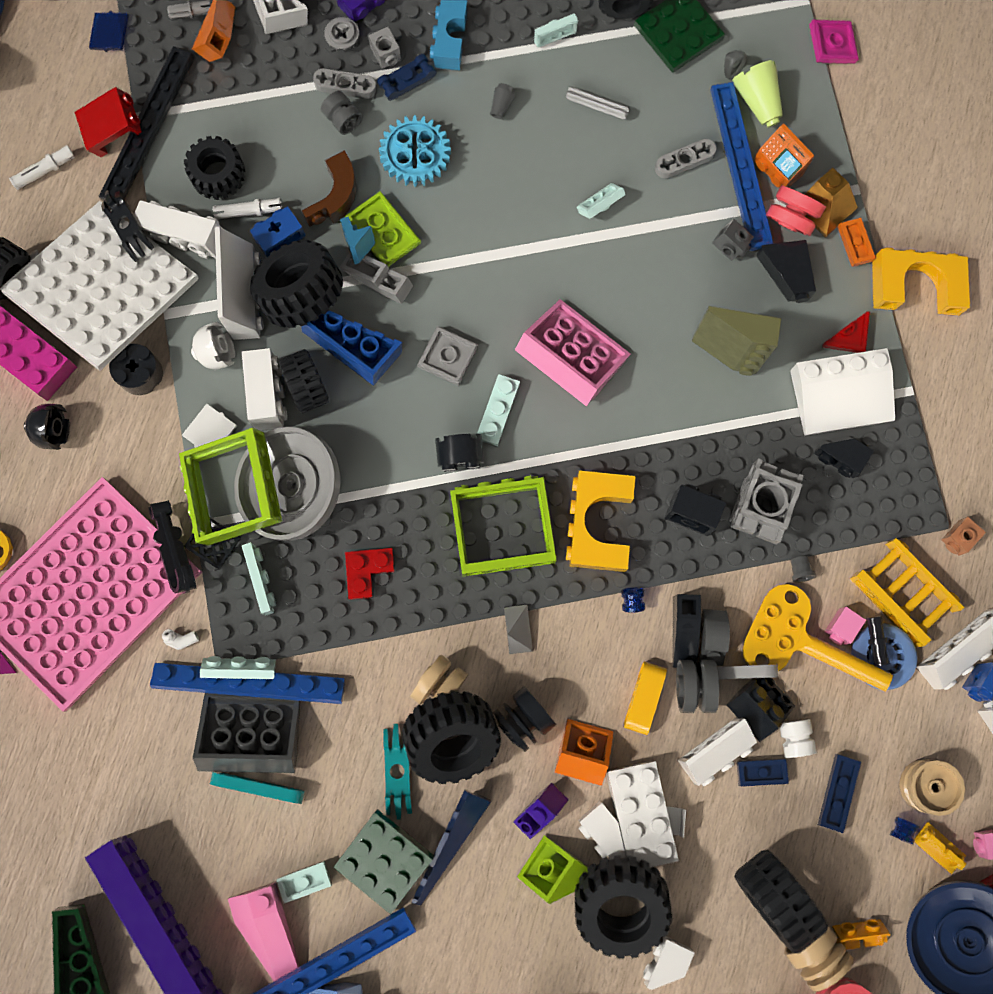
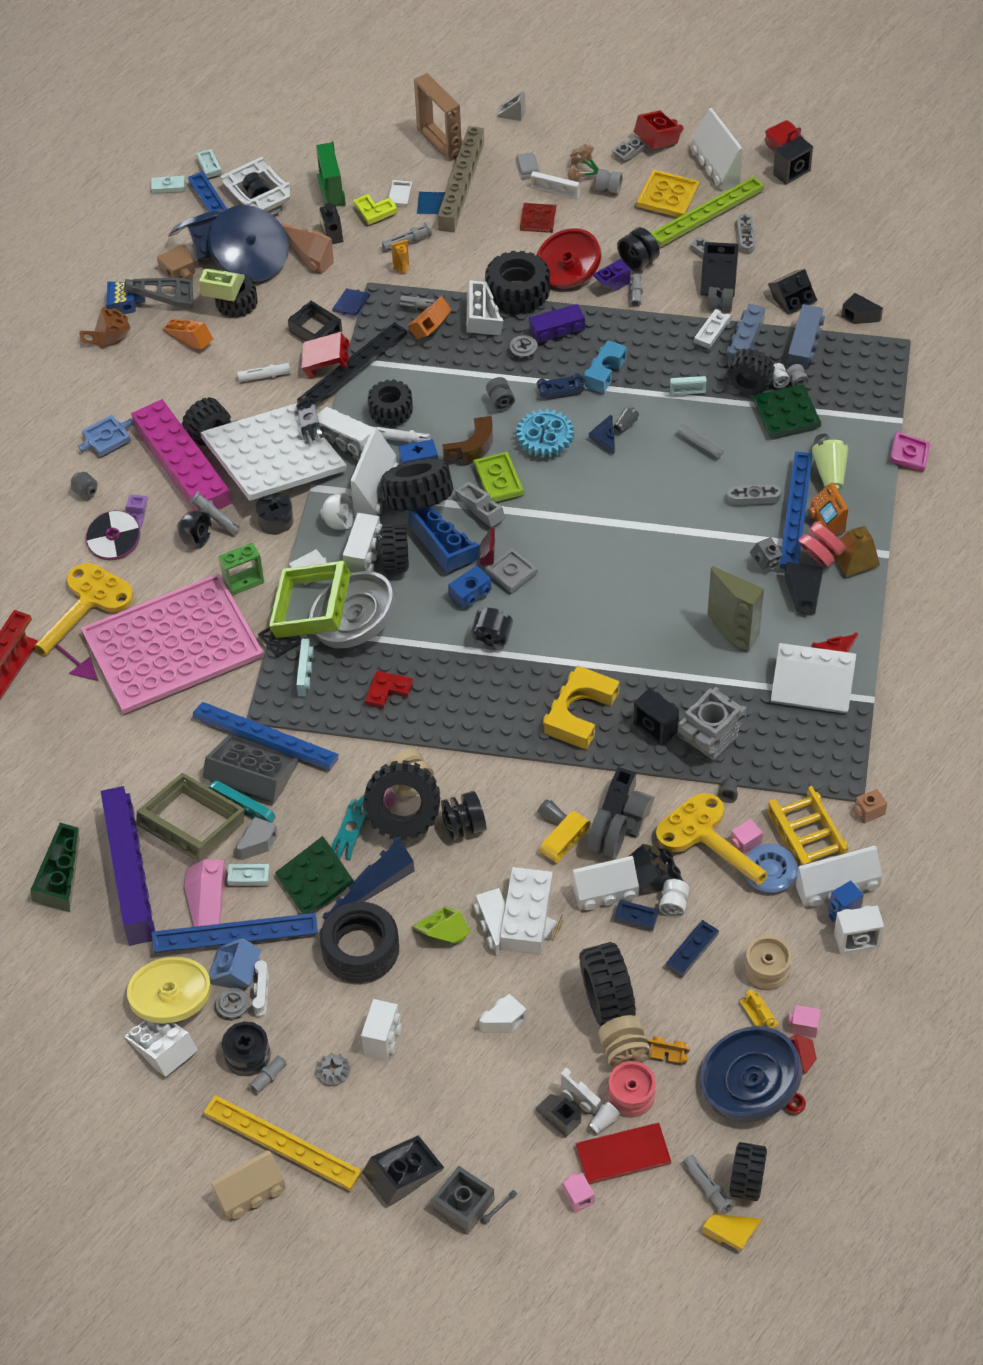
camera: 25 degrees right, 25 degrees down
(51, 395) = (218, 516): none -> light grey pin
(59, 65) = (311, 309): none -> black window
(137, 463) = (252, 576): none -> bright green window
(172, 550) = (248, 633): black piece -> none
(179, 641) = (225, 694): white arm -> none
(208, 792) = (197, 850): none -> olive window
(238, 668) = (263, 718): light aqua plate -> none
(296, 829) = (257, 839): none -> light grey slope
(358, 240) = (476, 474): dark azure slope -> none
(361, 79) = (522, 383): light grey beam -> none
(381, 40) = (551, 362): light grey brick -> none
(410, 338) = (487, 548): none -> dark red slope
(411, 386) = (469, 587): none -> blue brick
(462, 970) = (356, 916): none -> black tyre
(483, 129) = (604, 434): none -> dark blue tile
(498, 409) = (534, 615): light aqua plate -> none
(505, 487) = (501, 713): lime window -> none
(518, 629) = (485, 763): light grey slope -> none
(541, 810) = (449, 884): dark purple slope -> none
(572, 351) = (607, 592): bright pink slope -> none
(584, 752) = (499, 856): orange slope -> none
(601, 200) = (674, 503): light aqua plate -> none
(618, 670) = (551, 811): none -> dark grey cone
(622, 934) = (457, 947): black tyre -> none
(633, 600) = (584, 768): clear blue wheel -> none
(745, 672) = (651, 836): light grey beam -> none
(846, 455) = (795, 720): black slope -> none
(856, 242) = (867, 584): orange plate -> none
(877, 641) = (766, 848): black pin -> none
(904, 830) = (734, 989): clear blue wheel -> none
(946, 271) = (892, 607): yellow arch -> none

